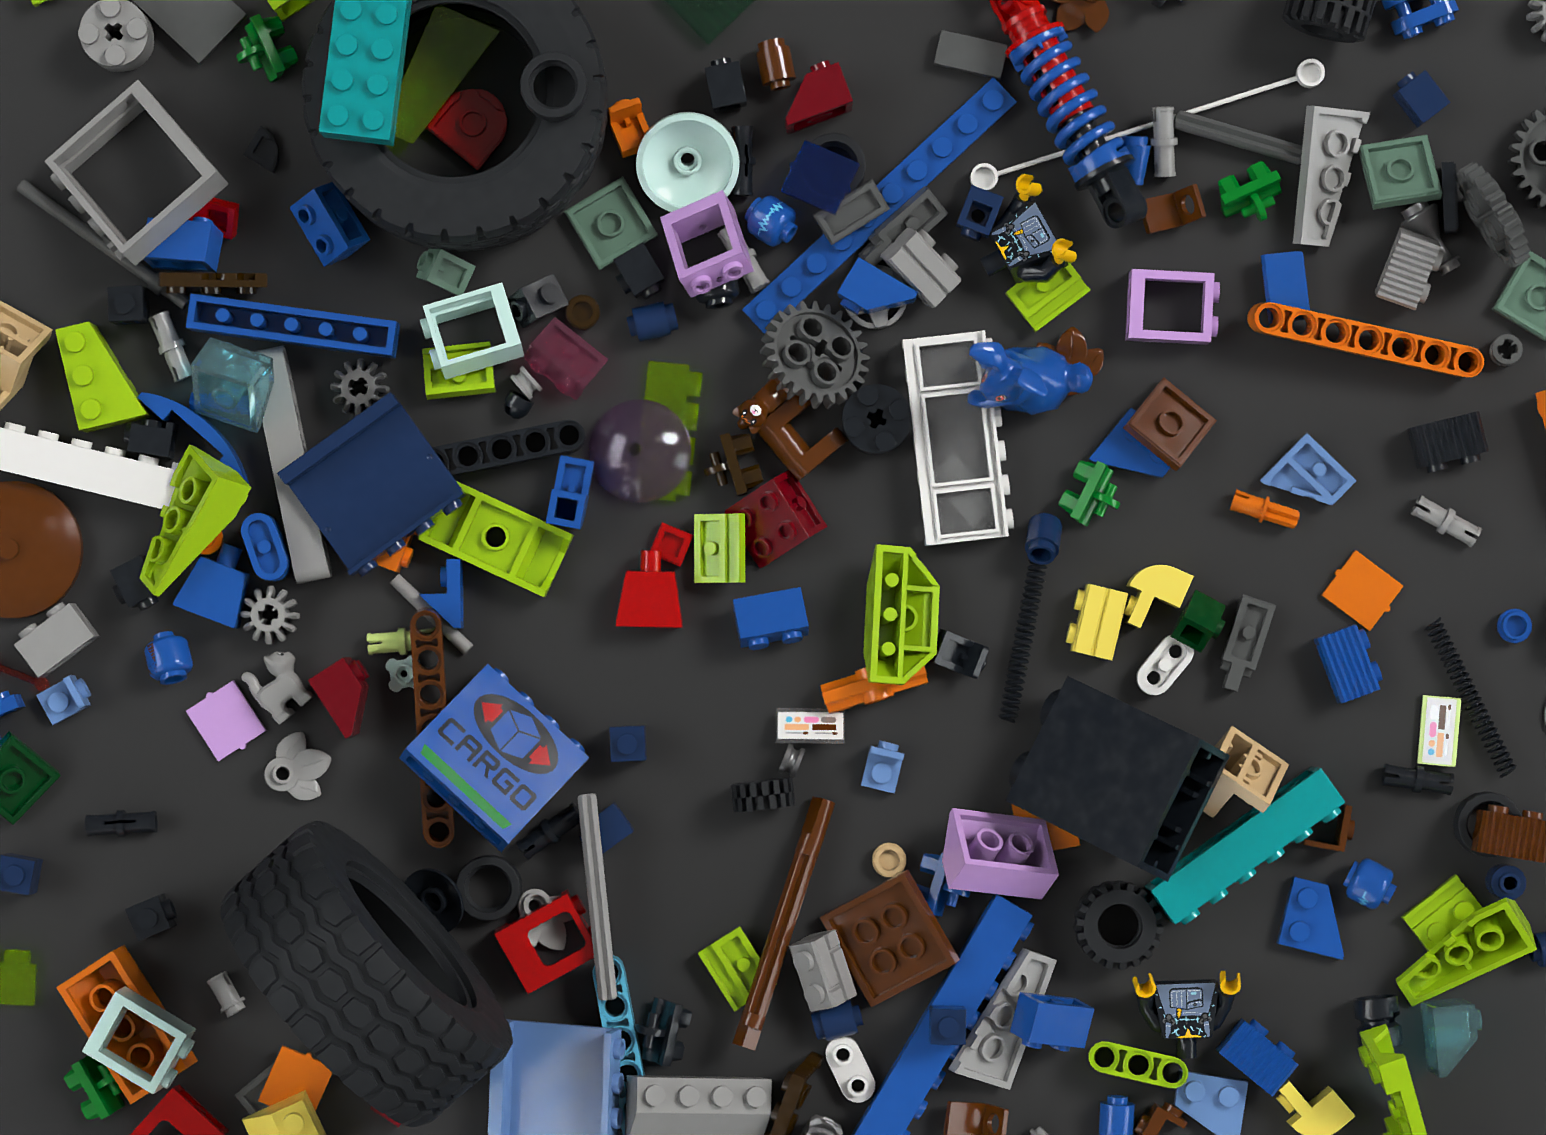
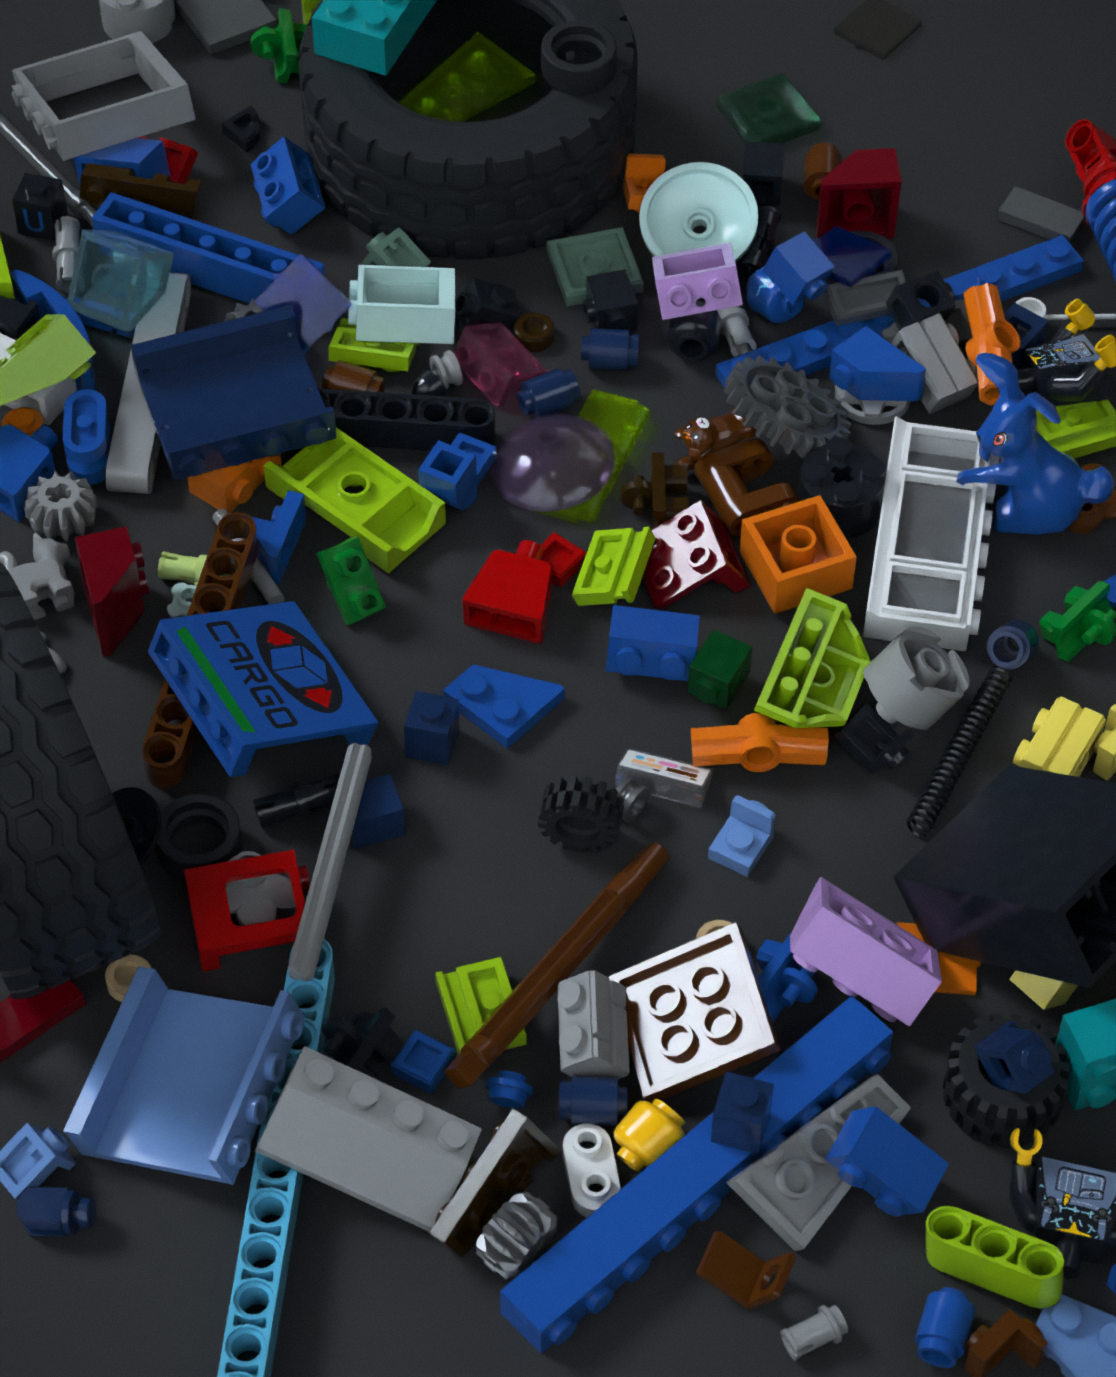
camera: 15 degrees right, 35 degrees down
(395, 371) = (312, 298): none -> clear blue piece
(457, 421) = (352, 377): none -> reddish brown brick
(525, 629) = (351, 580): none -> green hips
(616, 384) = (548, 393): none -> dark blue brick
(670, 694) = (503, 702): none -> blue wing
(709, 1018) = (422, 1061): none -> blue tile
(777, 1029) = (508, 1090): none -> blue plate
(790, 215) = (799, 269): none -> blue brick
(827, 629) = (719, 669): none -> dark green brick
(859, 499) = (797, 550): none -> orange brick
(883, 219) = (930, 287): none -> black brick
(884, 1037) = (647, 1133): none -> yellow head
(964, 246) = (989, 334): none -> orange piece
(979, 601) = (916, 679): none -> light grey brick
(1124, 929) = (1024, 1054): none -> dark blue brick

